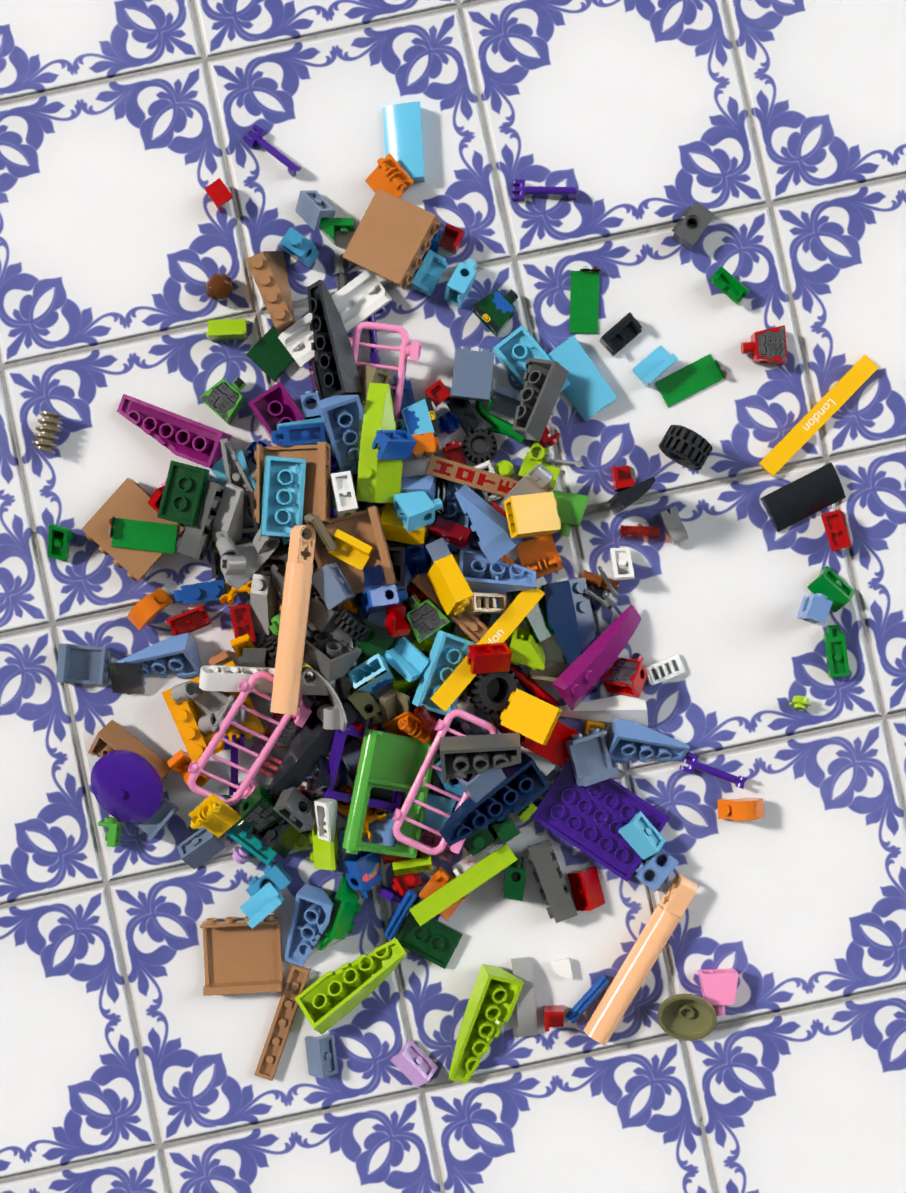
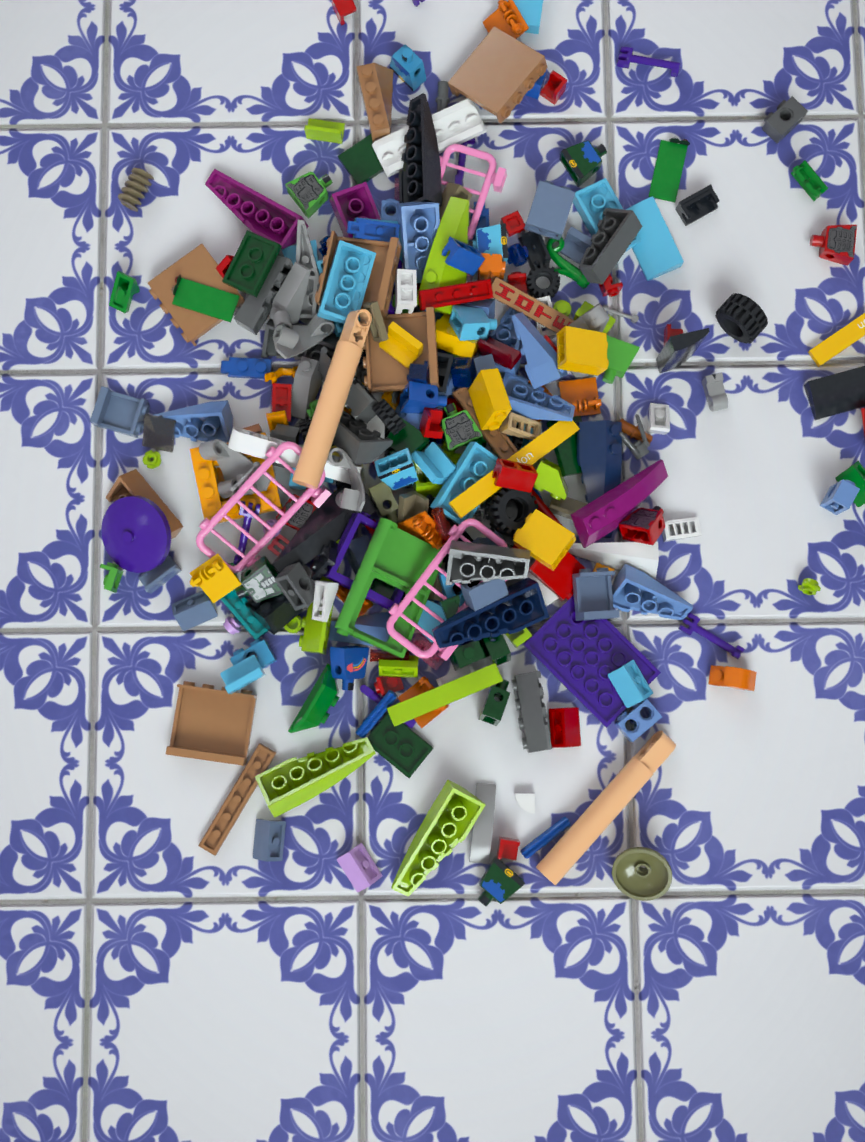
camera: 10 degrees right, 5 degrees down
(129, 701) = (152, 464): none -> lime plate
(148, 608) = (193, 370): orange brick -> none
(180, 763) = (192, 521): orange brick -> none
(189, 621) = (233, 390): red hinge -> none
(219, 287) = (325, 89): reddish brown head -> none
(309, 920) = (285, 701): medium blue wedge -> none
(313, 207) = (427, 33): sand blue panel -> none
(331, 225) = (444, 54): green slope -> none
(332, 585) = (376, 374): sand blue panel -> none
(372, 818) = (368, 614): light orange arm -> none
(394, 484) = (455, 294): none -> red tile
(429, 273) = (526, 115): medium azure hinge -> none
(441, 492) = (498, 314): black axle -> none
(451, 800) = (450, 606): none -> dark green tile
(461, 283) = (557, 123): medium azure torso -> none
(537, 448) = (596, 294): lime plate -> none
(551, 1052) = (499, 882): none -> torso
(639, 531) = (681, 392): clear red pin -> none
(654, 365) = (724, 241): medium azure panel -> none
(690, 380) = (756, 261): green piece -> none
(718, 987) = (679, 851): bright pink torso -> none
(836, 652) = (853, 545): green hinge -> none

